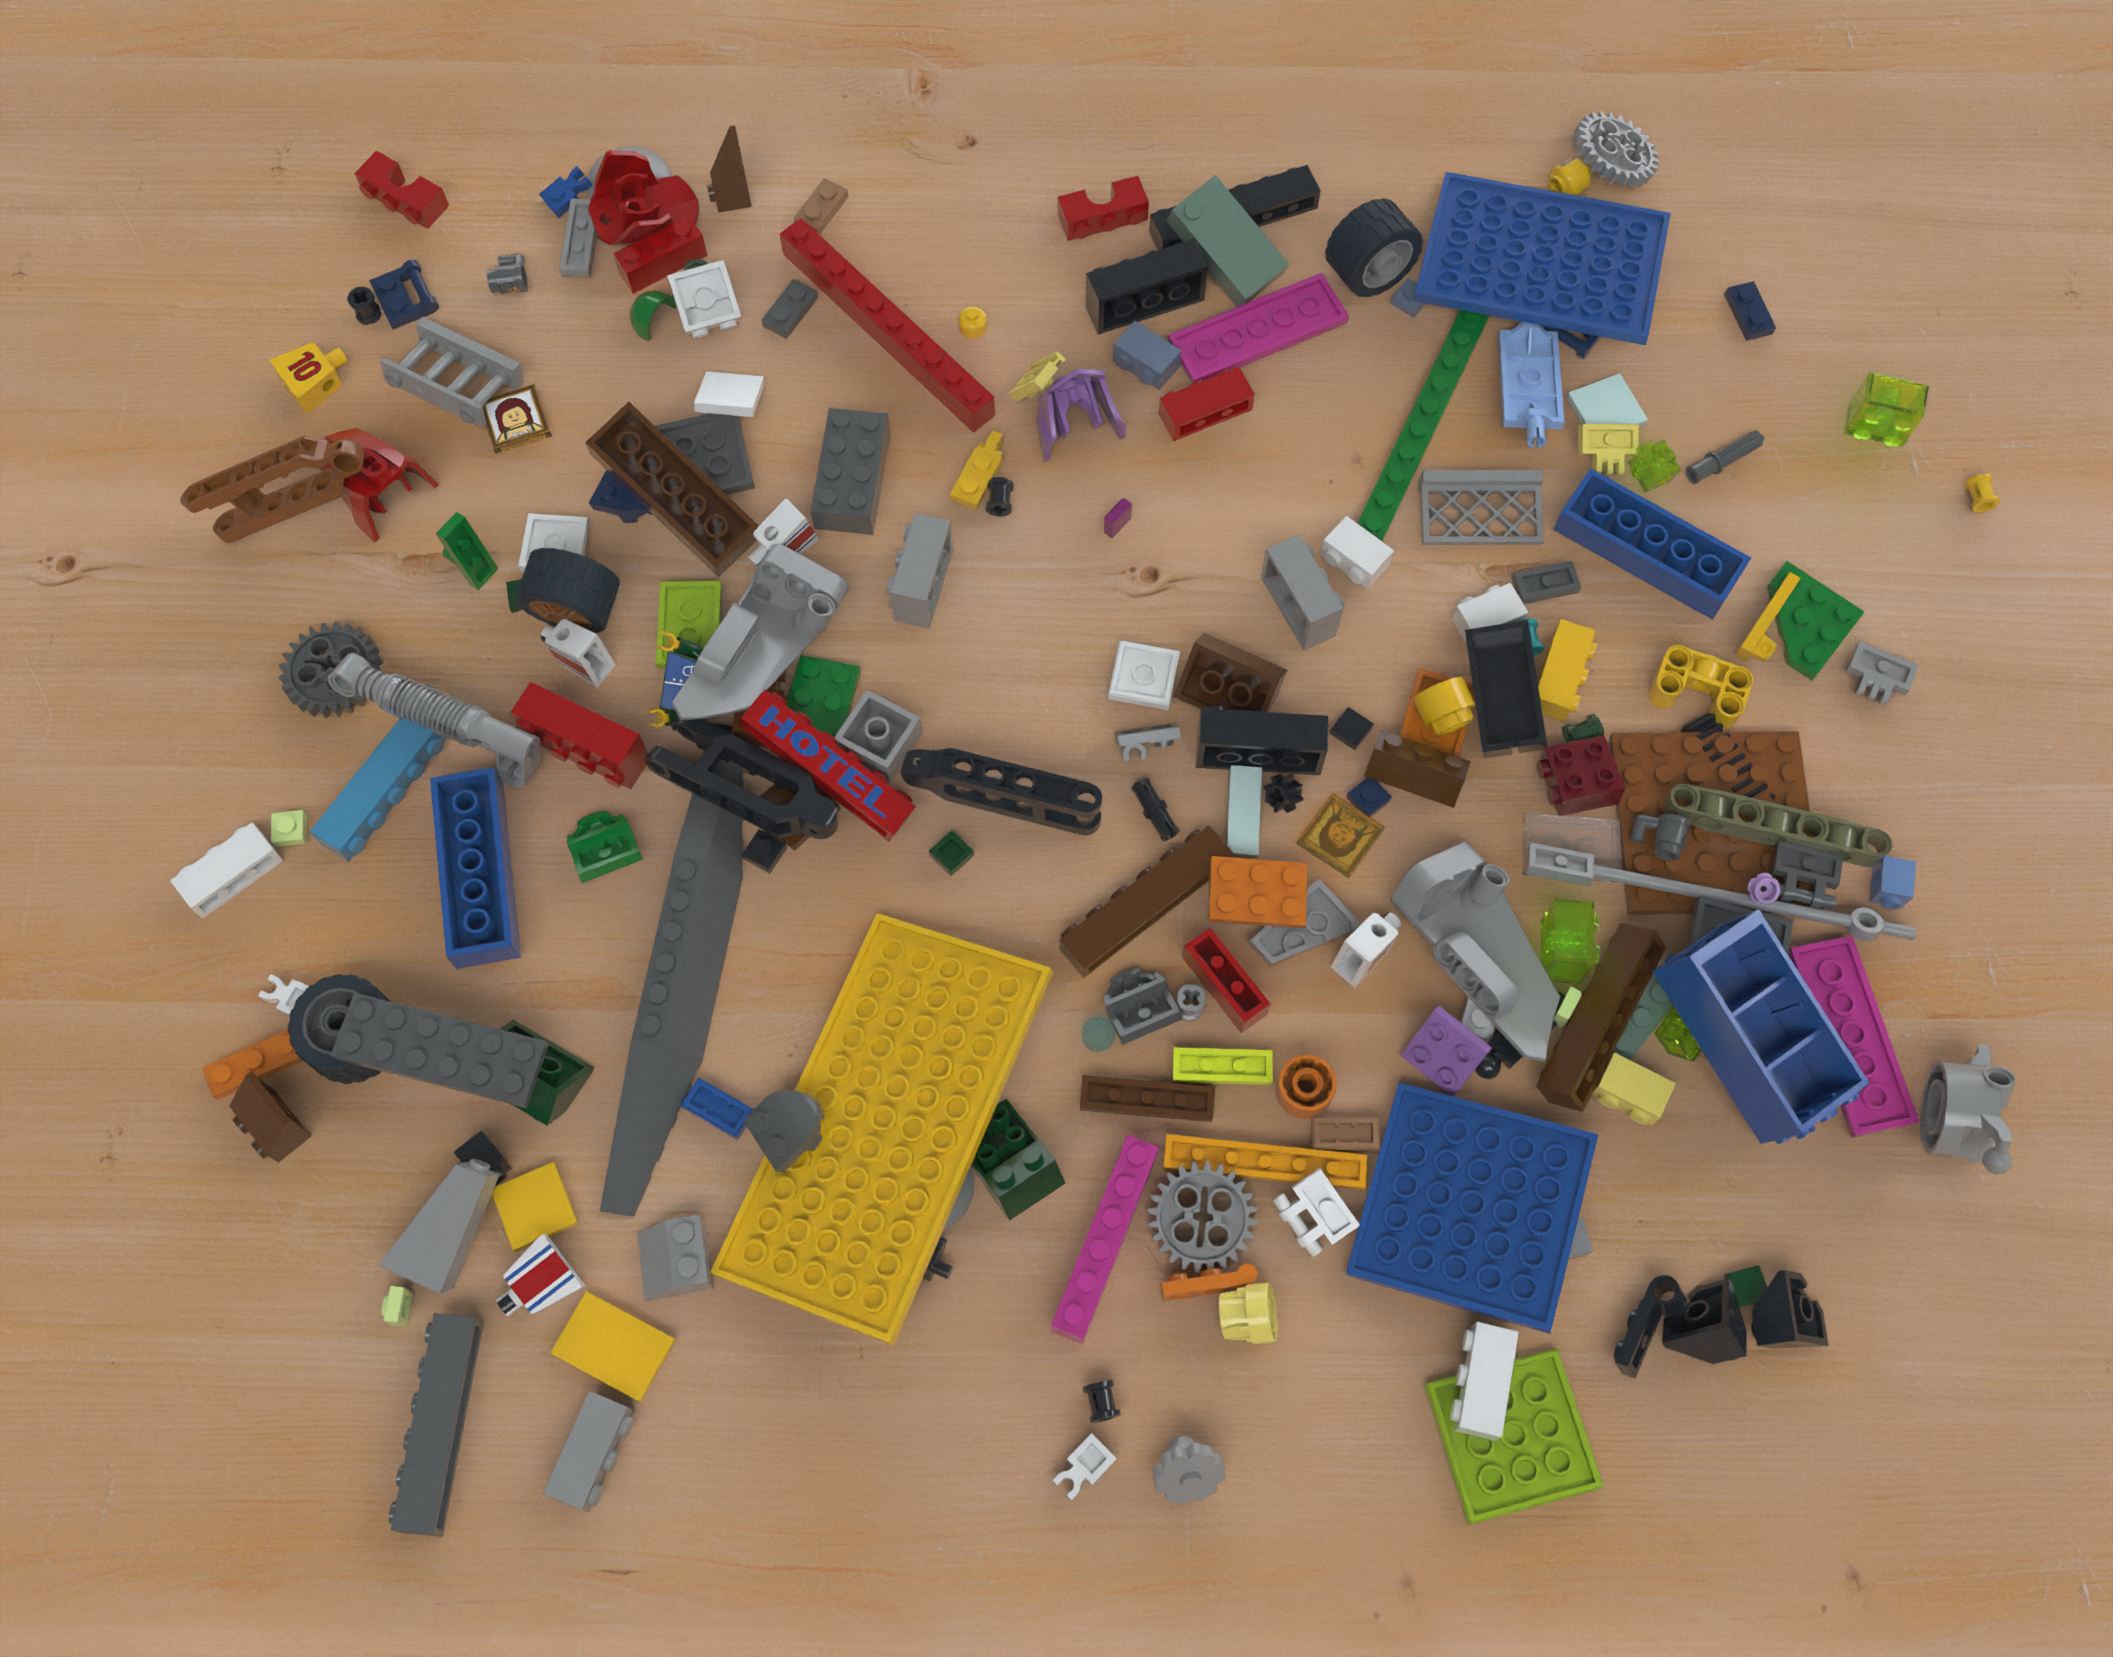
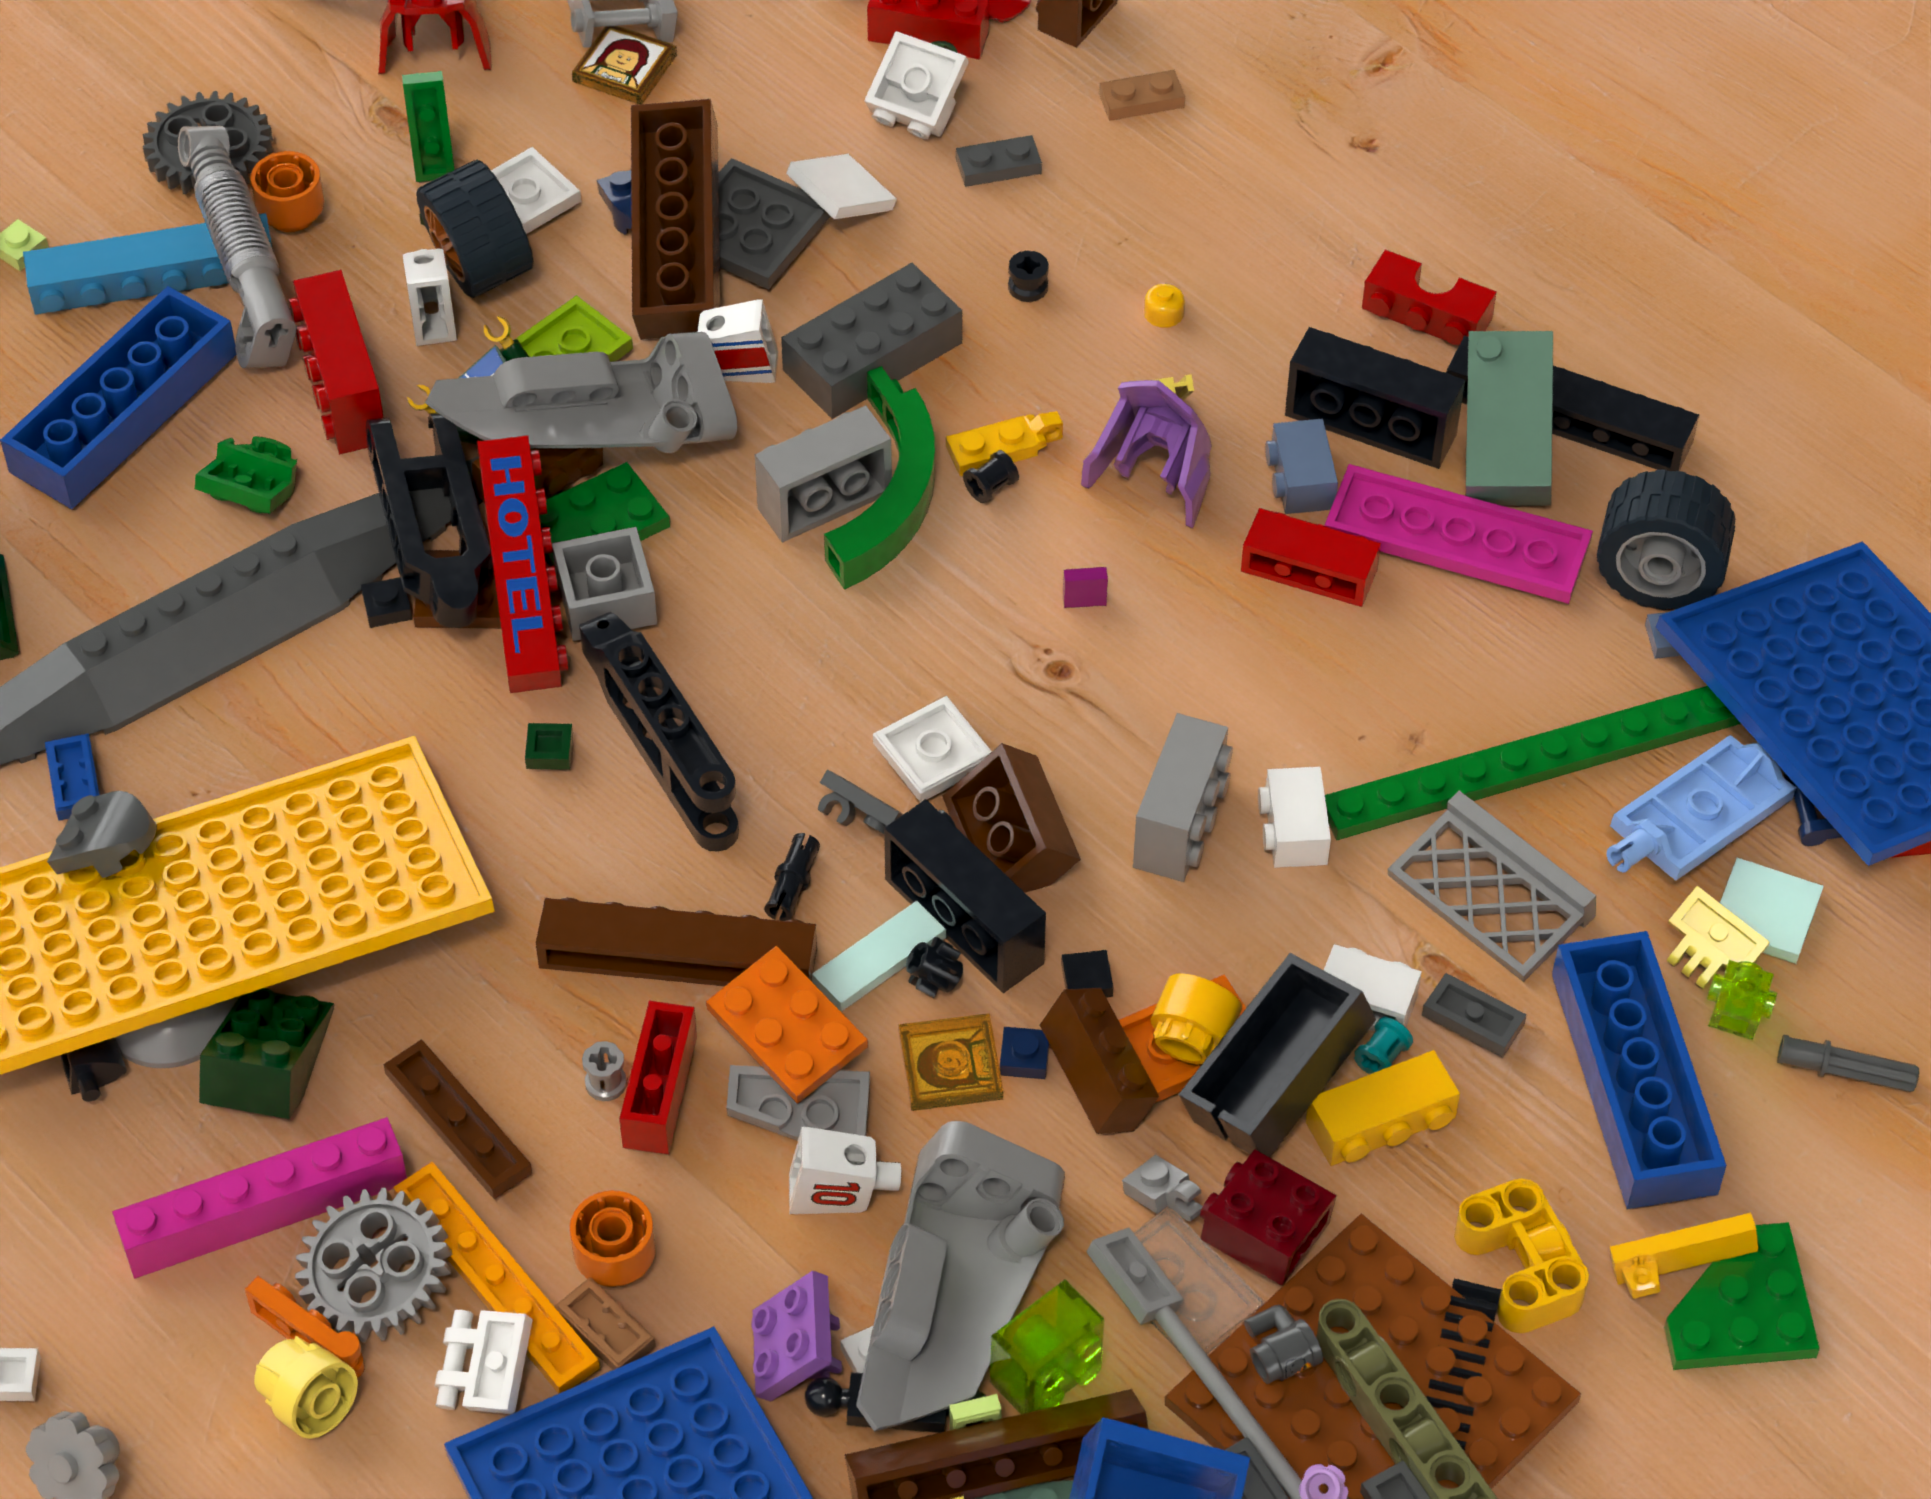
camera: 45 degrees right, 15 degrees down
(419, 645) = (288, 190): none -> orange piece
(644, 308) = (853, 50): green helmet -> none
(887, 371) = (1028, 276): none -> black wheel
(888, 325) = (1070, 244): red brick -> none
(967, 538) = (892, 521): none -> green arch
(1098, 1034) = (486, 1024): clear light blue tile -> none
(1101, 1401) = (82, 1333): black bush -> none
(1139, 1004) = (552, 1029): dark grey slope -> none
(1222, 1066) = (560, 1151): neon yellow plate -> none
(1510, 805) = (1163, 1185): none -> light grey plate
(1583, 730) = (1336, 1182): clear green bush -> none
(1880, 672) = (1758, 1423): light grey hinge -> none

